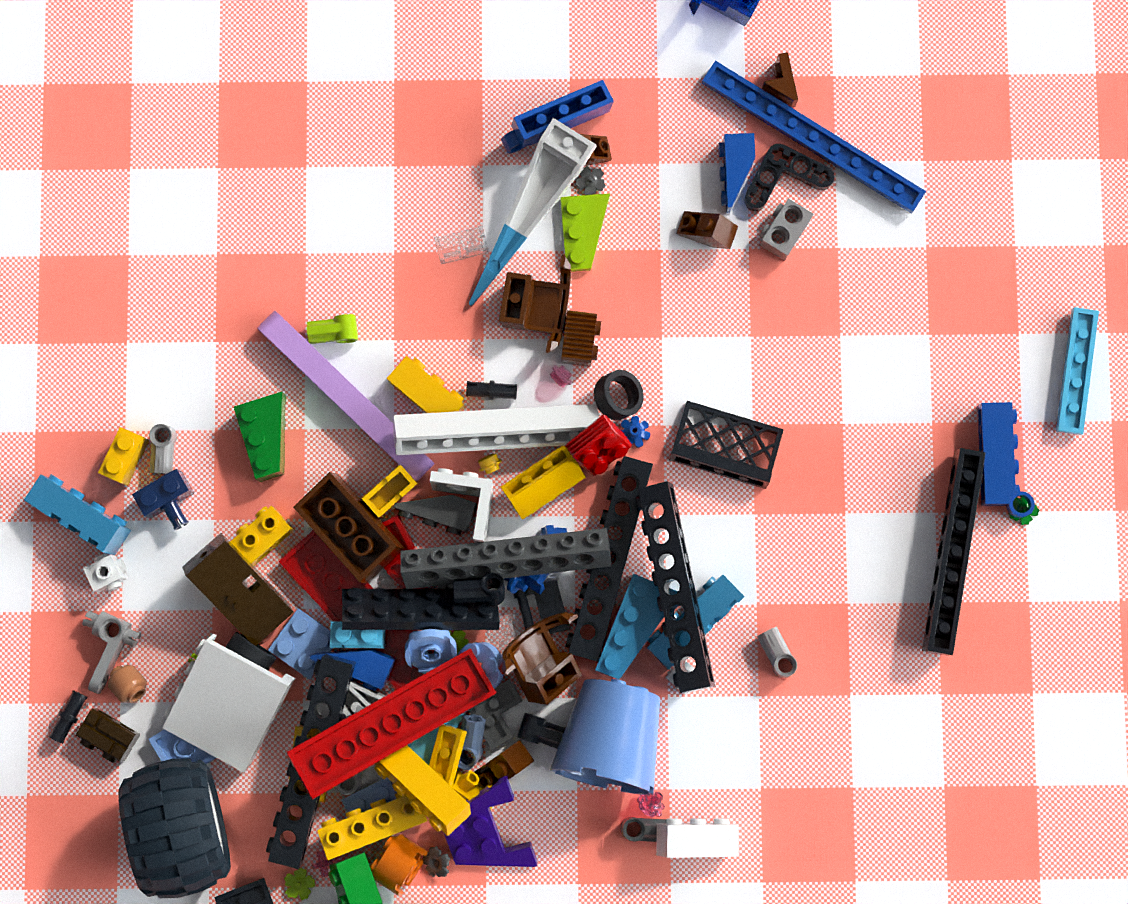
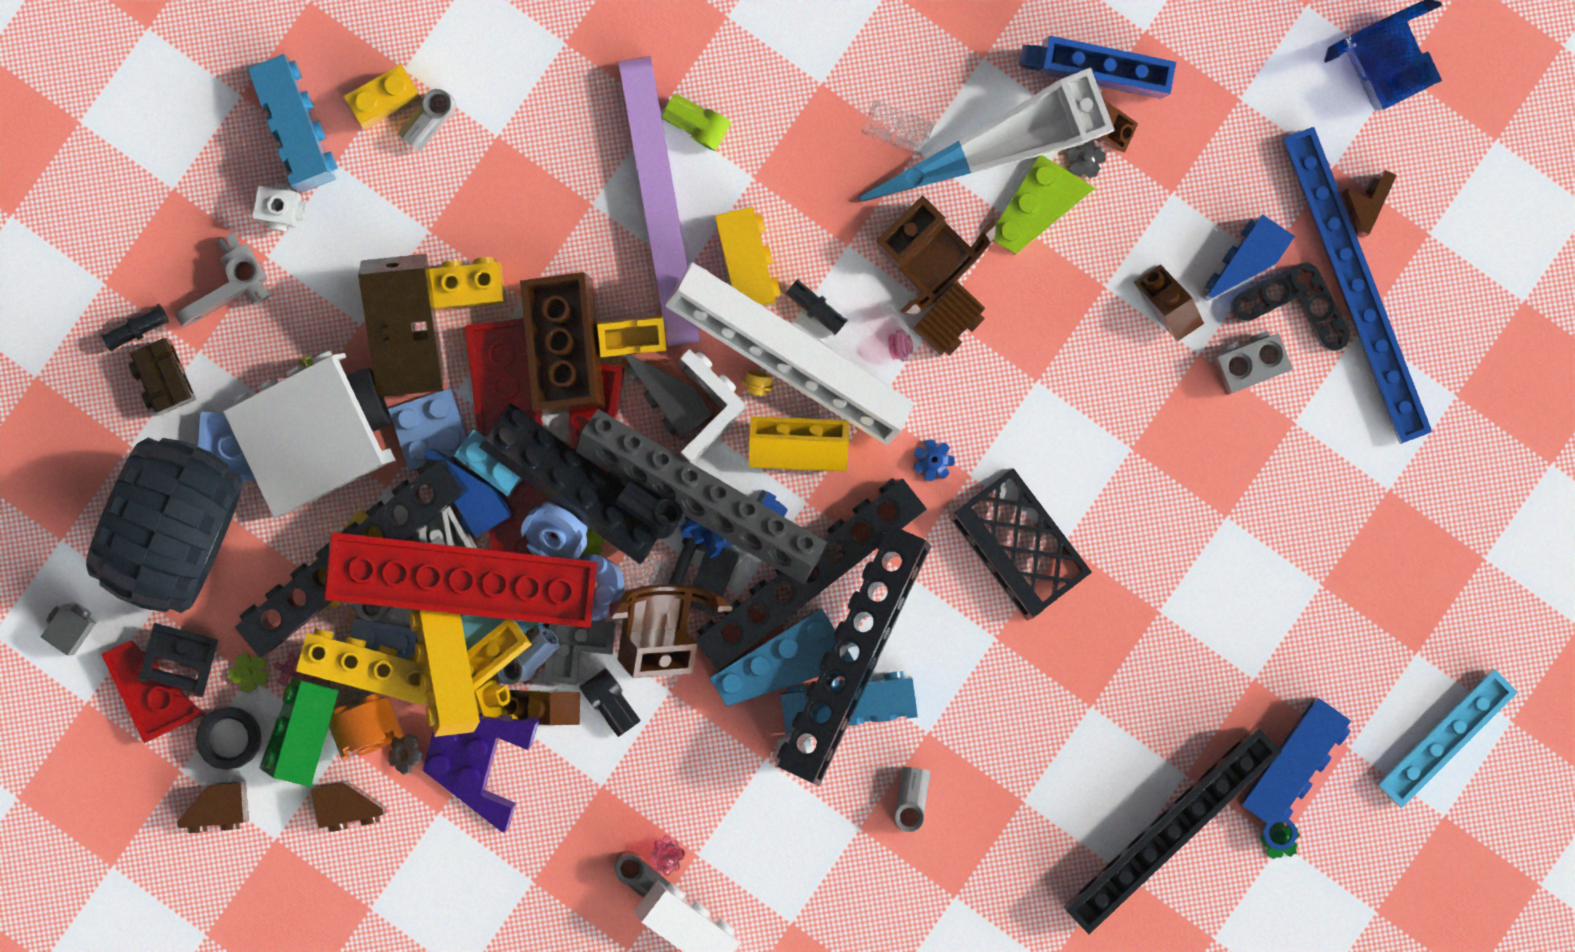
camera: 35 degrees right, 5 degrees up
(127, 684) = (219, 338): nougat head -> none
(164, 496) = (395, 170): dark blue brick -> none
(263, 433) = (544, 180): green wedge -> none
(598, 445) = (883, 449): red brick -> none
(611, 737) = (675, 759): medium blue cone -> none
(632, 387) = (965, 413): black tyre -> none

